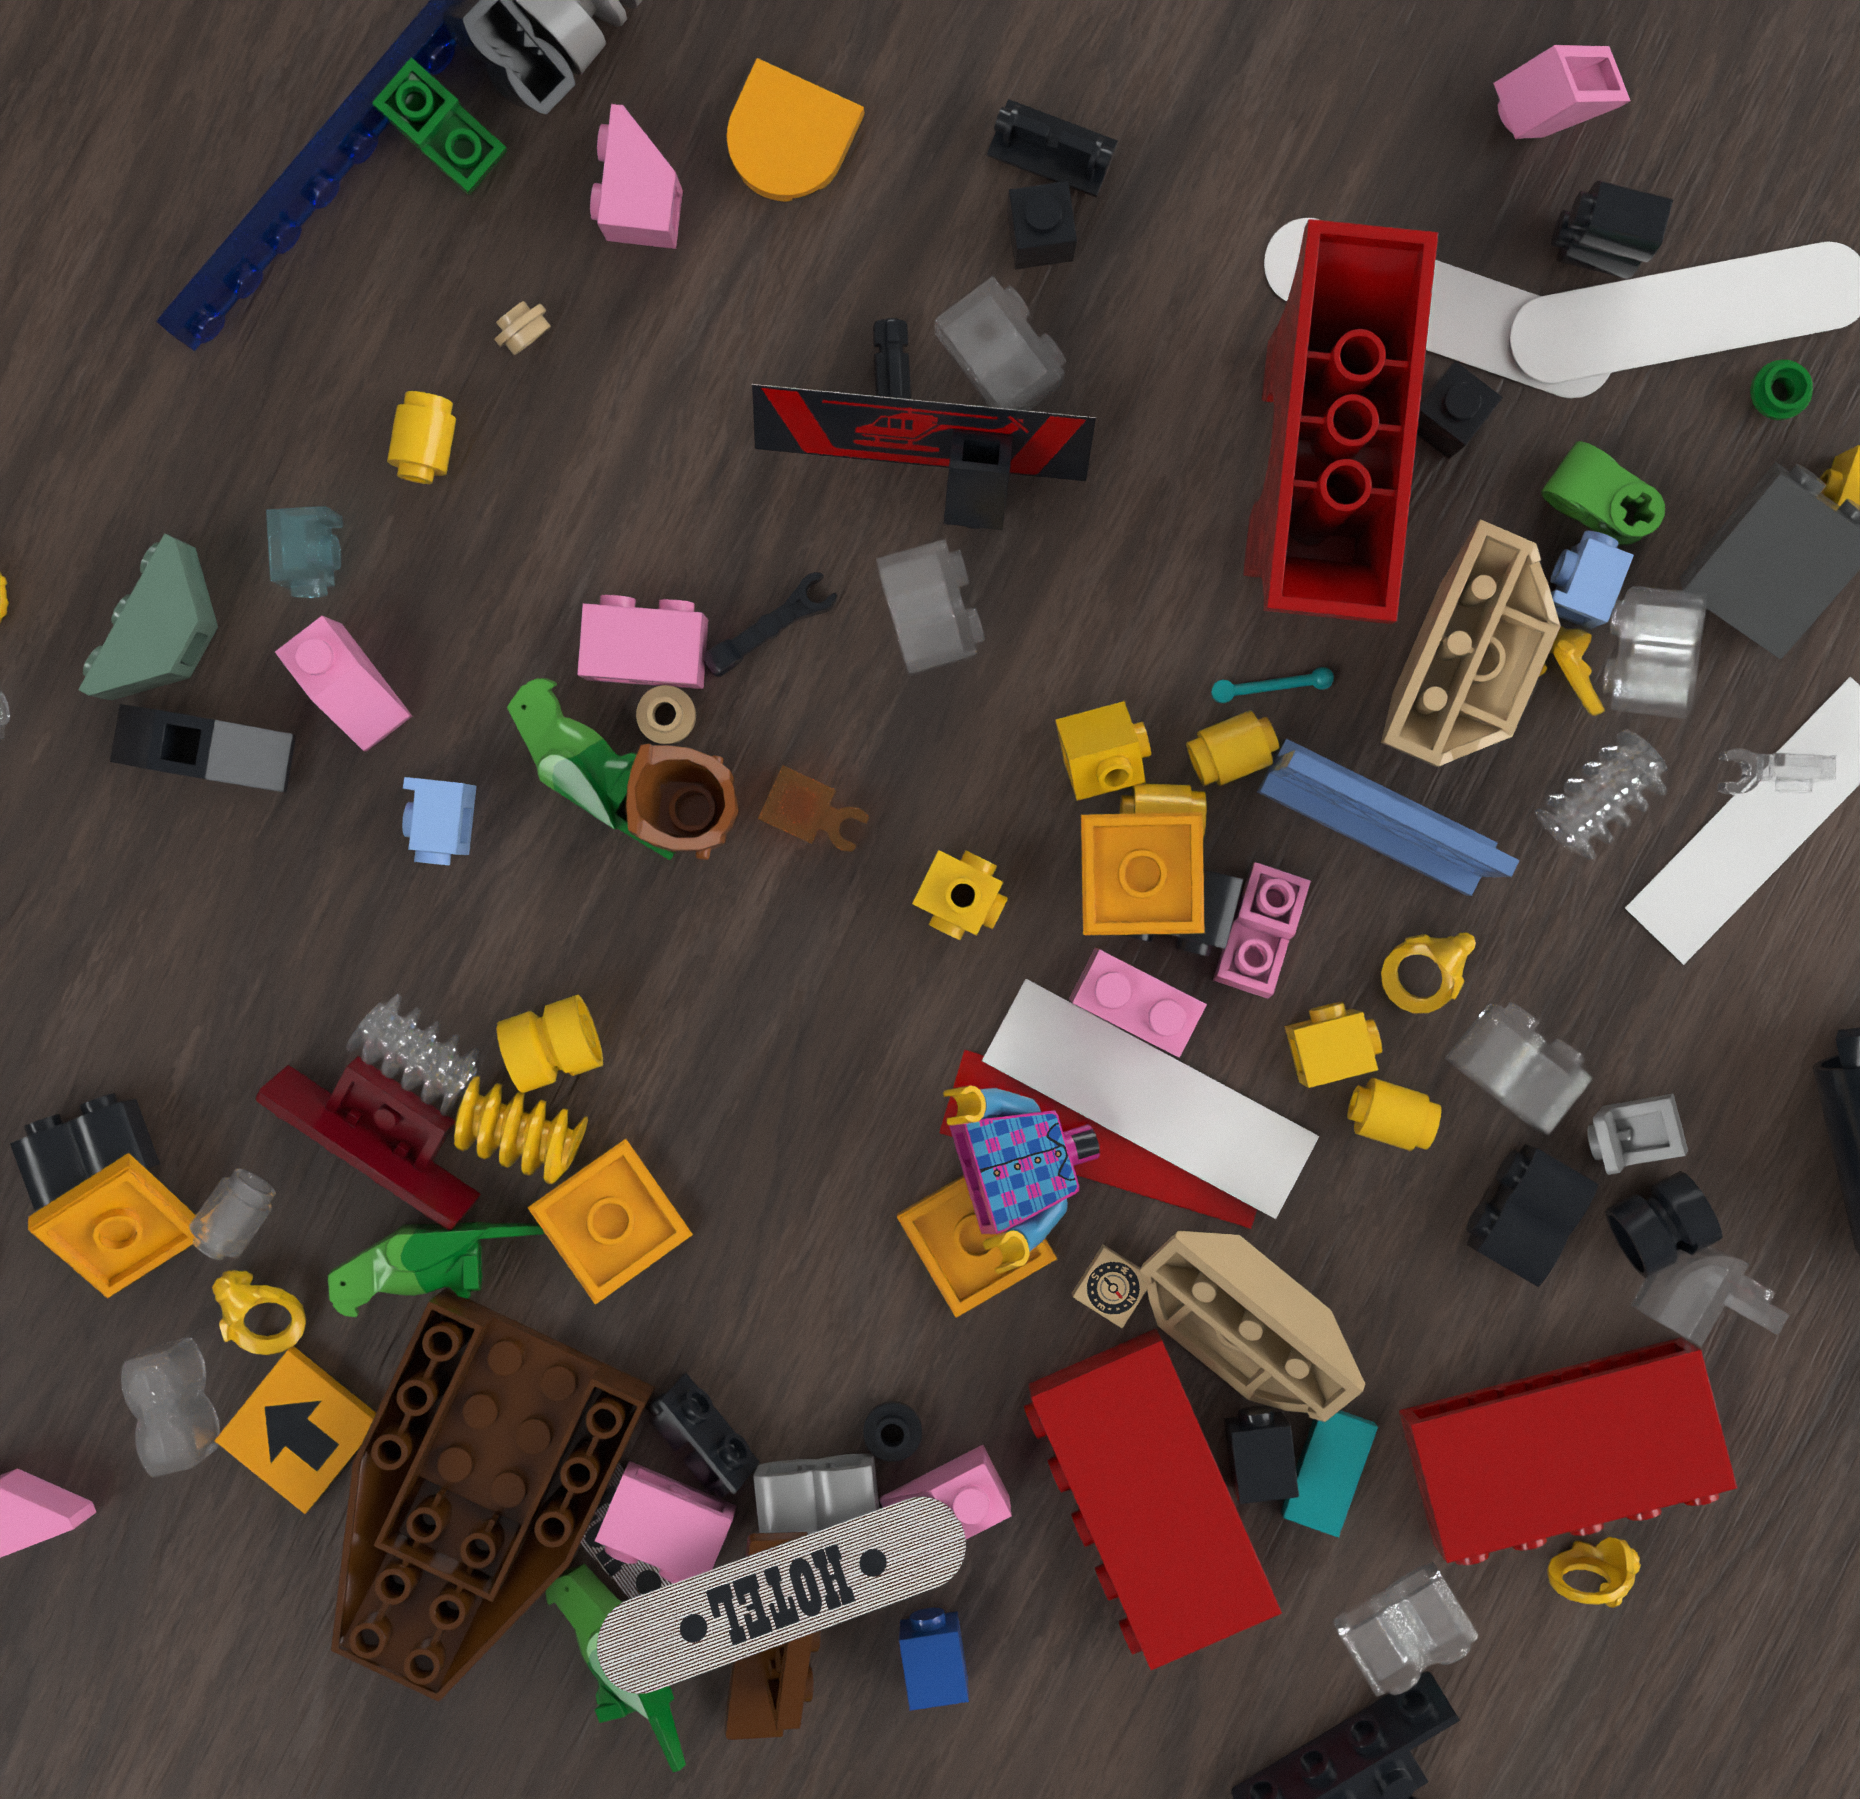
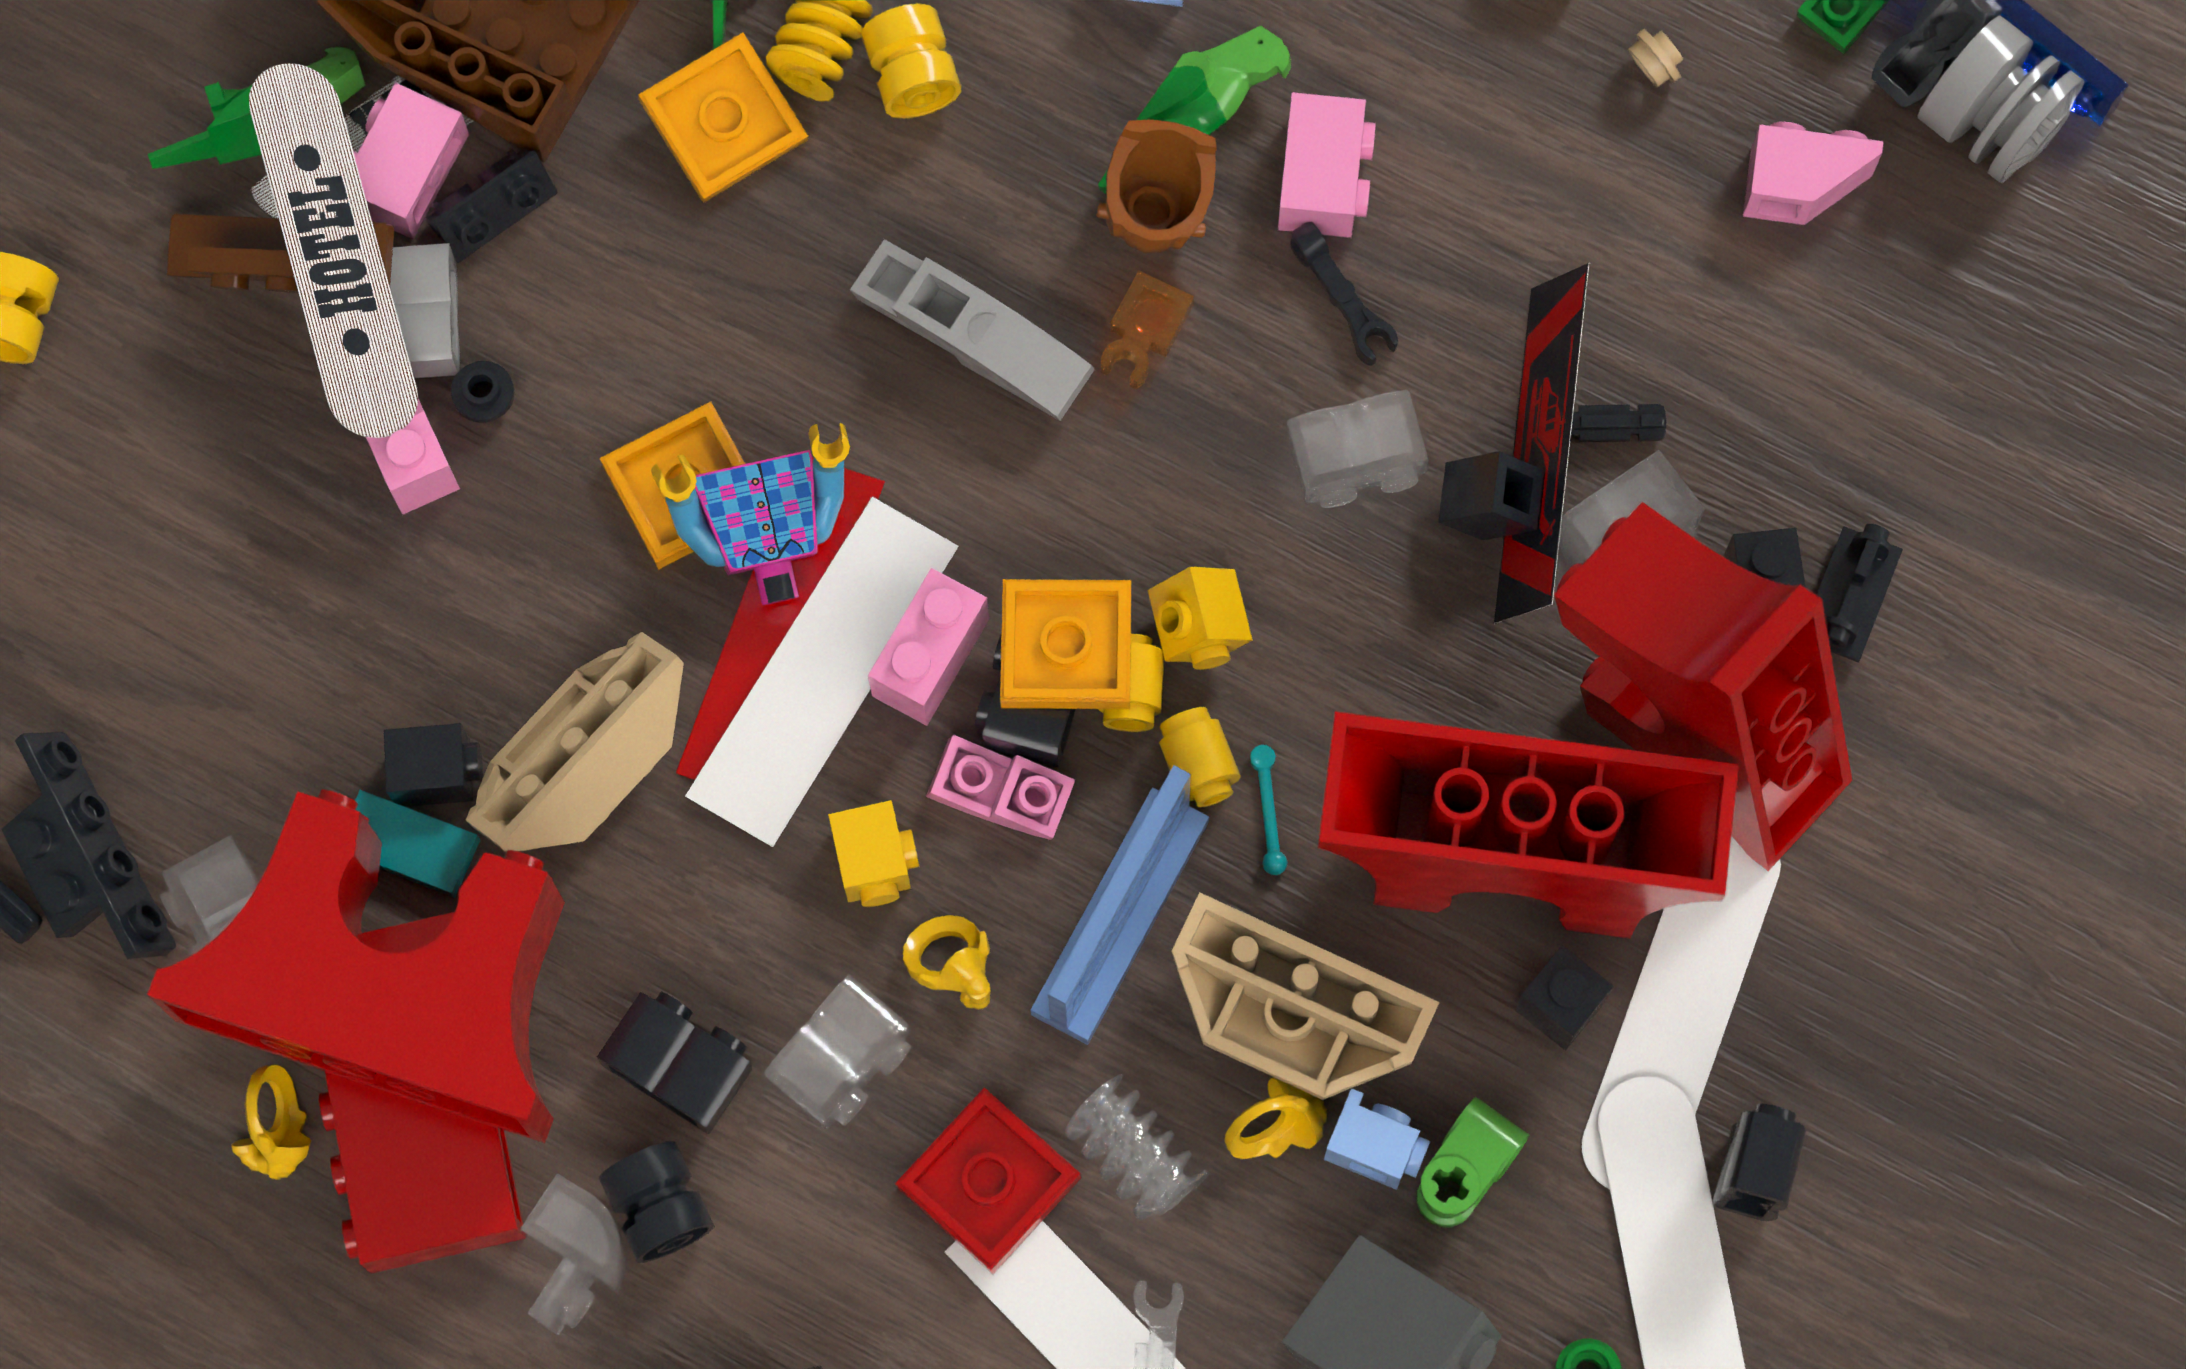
camera: 95 degrees right, 15 degrees down
(684, 719) = (1250, 204): tan plate -> none
(789, 133) = (1862, 327): light orange tile -> none
(822, 974) = (973, 328): none -> light grey slope
(933, 1659) = (239, 422): blue brick -> none
(939, 882) = (1052, 467): yellow brick -> none
(1111, 1286) = (620, 616): tan tile -> none
(1150, 1500) = (391, 650): red brick -> none
(1179, 263) = (1712, 670): none -> red piece
(1394, 1115) = (793, 917): yellow brick -> none
(1531, 1528) = (414, 1023): none -> red piece
(1560, 90) = (1919, 1131): bright pink slope -> none
(1624, 927) = (988, 1180): none -> red tile
(1637, 1133) = (758, 1177): light grey bracket -> none
(1656, 651) = (1293, 1207): clear brick -> none

